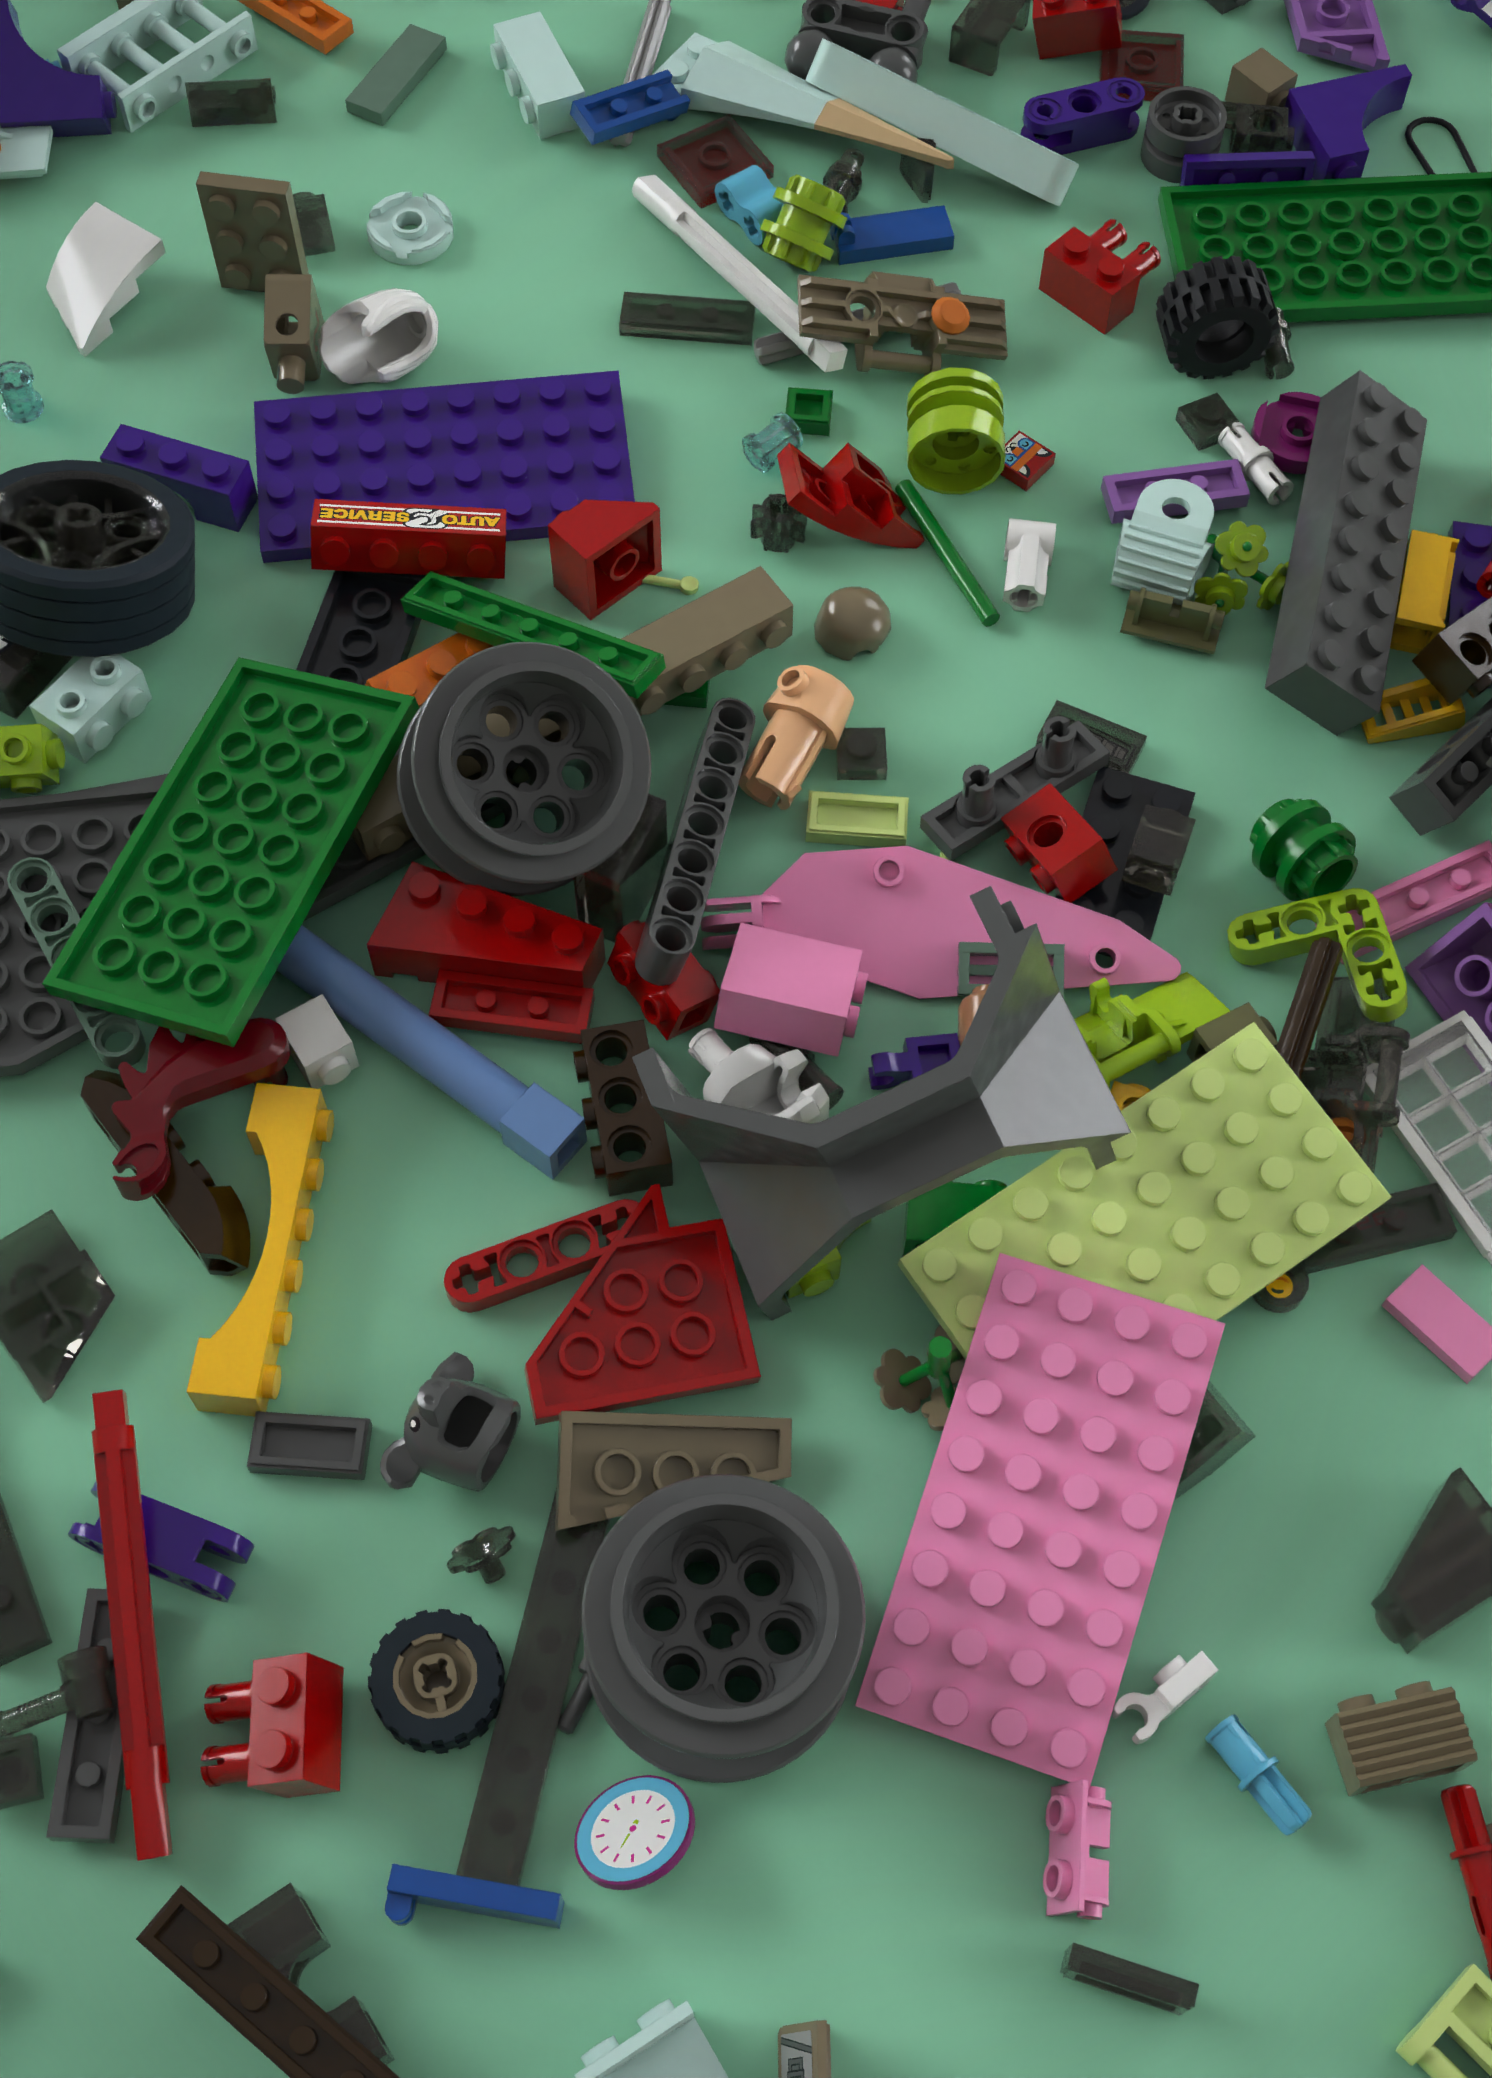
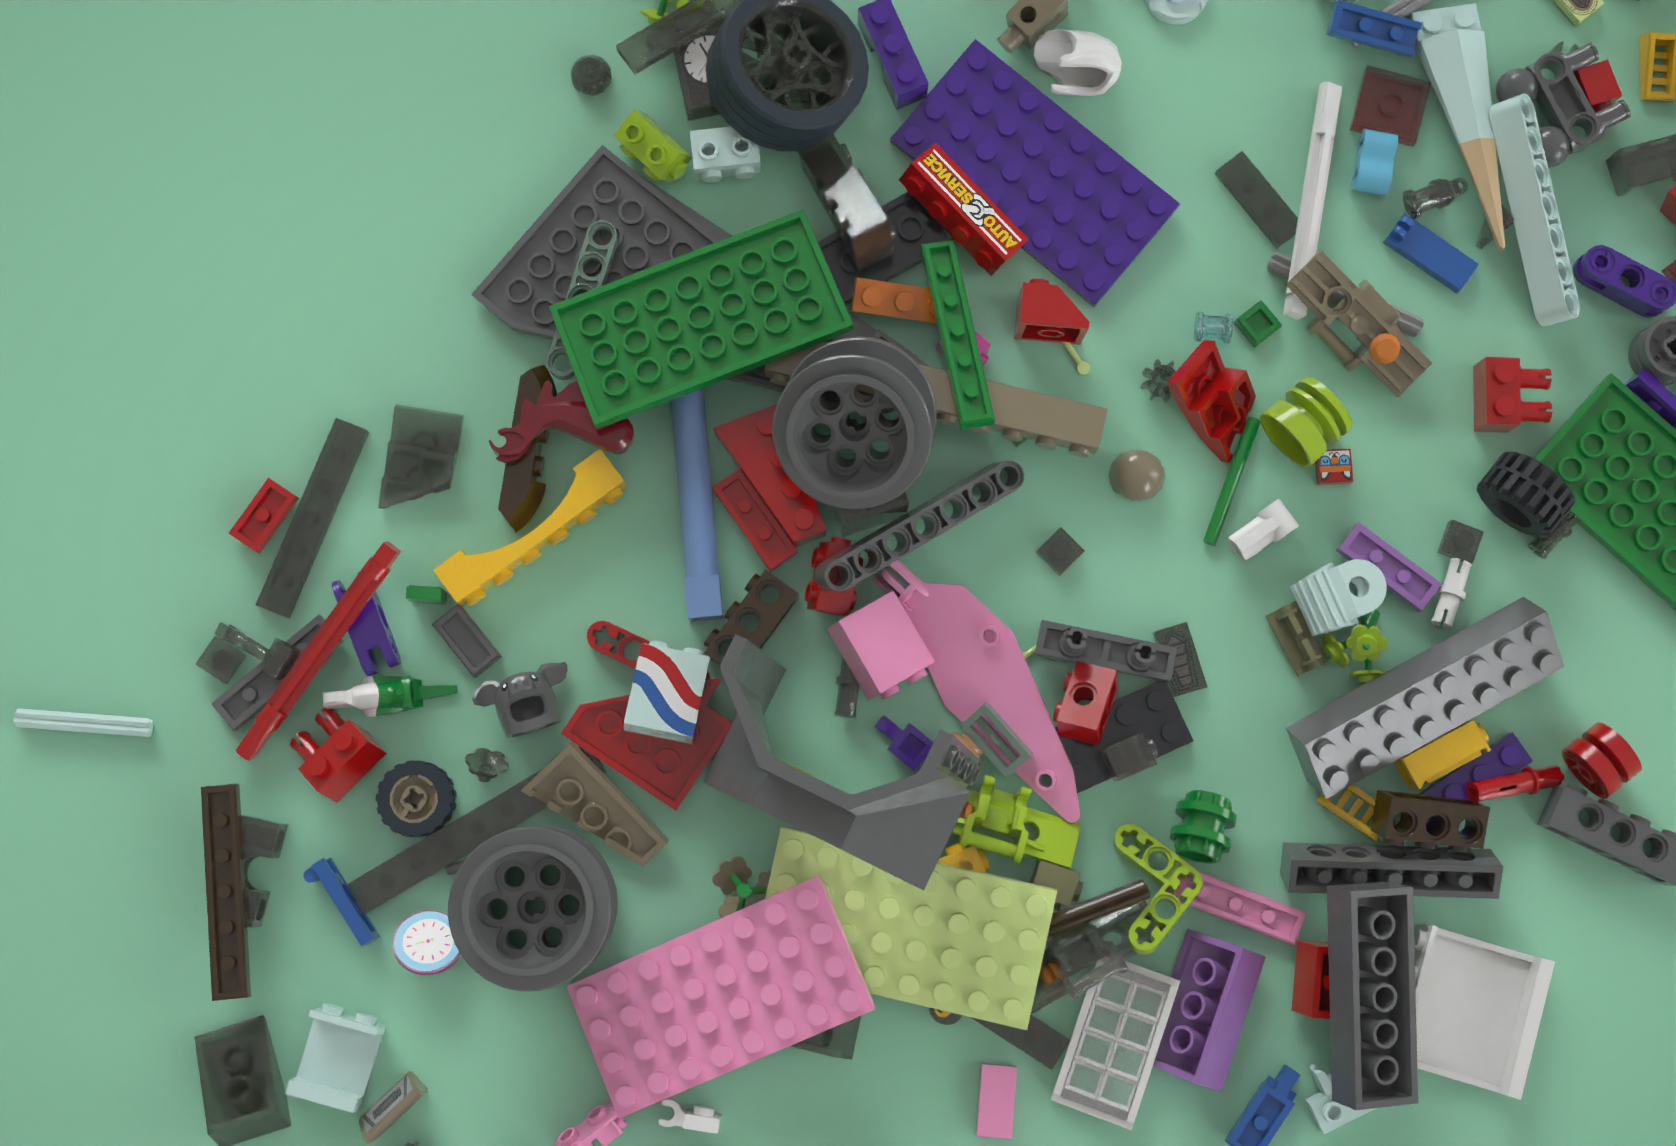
camera: 45 degrees right, 20 degrees up
(206, 1436) = (426, 594): none -> green tile
(270, 1601) = (386, 695): none -> green animal
(282, 619) = (848, 201): none -> clear smoke wedge
(318, 1043) = (650, 451): white brick -> none
(616, 1248) = (666, 692): none -> panel
(758, 1079) = (810, 684): white piece -> none
(803, 223) = (1383, 205): lime piece -> none
(803, 717) = (1044, 511): light nougat piece -> none
(856, 819) = (1018, 584): yellowish green tile -> none
(1275, 426) = (1500, 580): magenta plate -> none

